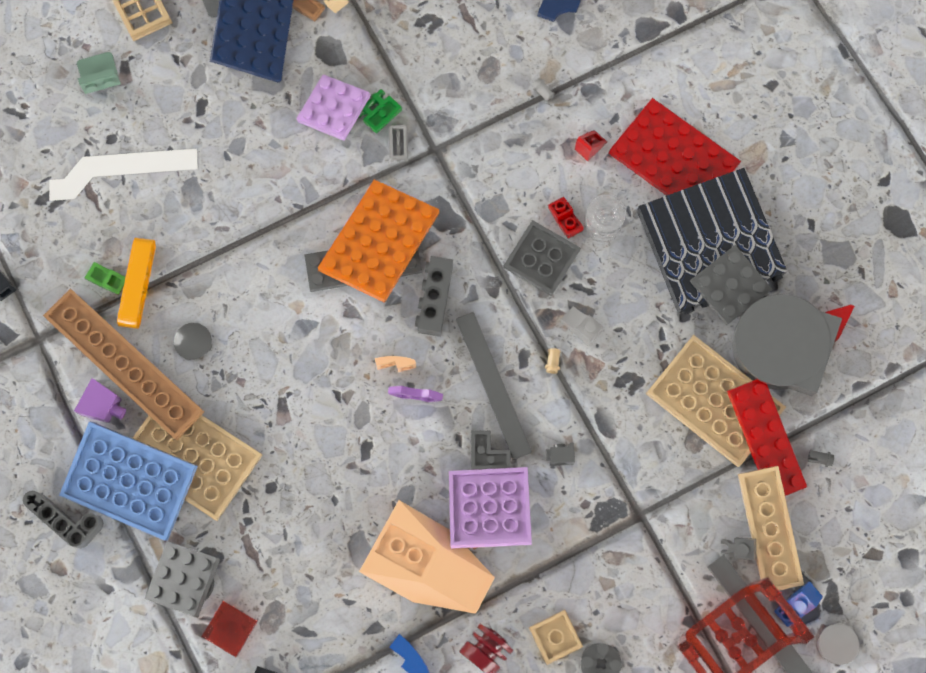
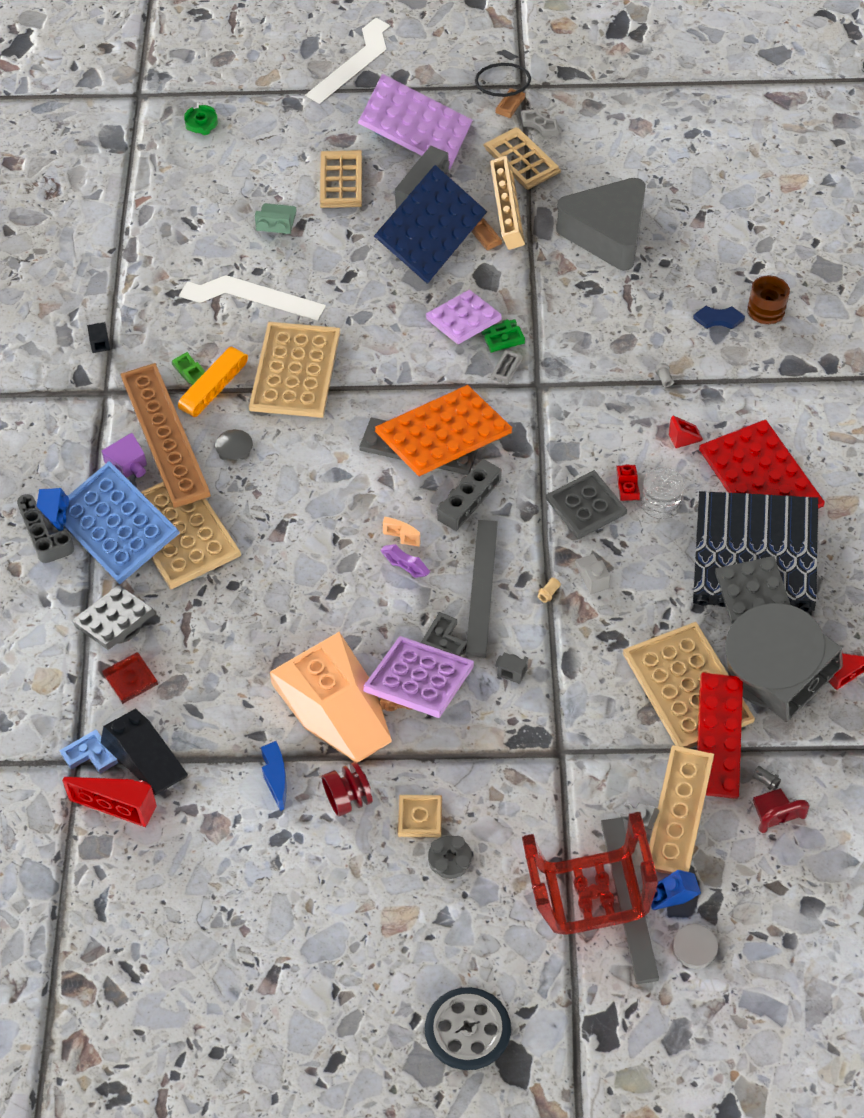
camera: 30 degrees right, 20 degrees down
(62, 495) = (53, 506): none -> blue slope
(206, 234) = (295, 369): none -> tan plate
(840, 482) = (775, 809): none -> dark red piece

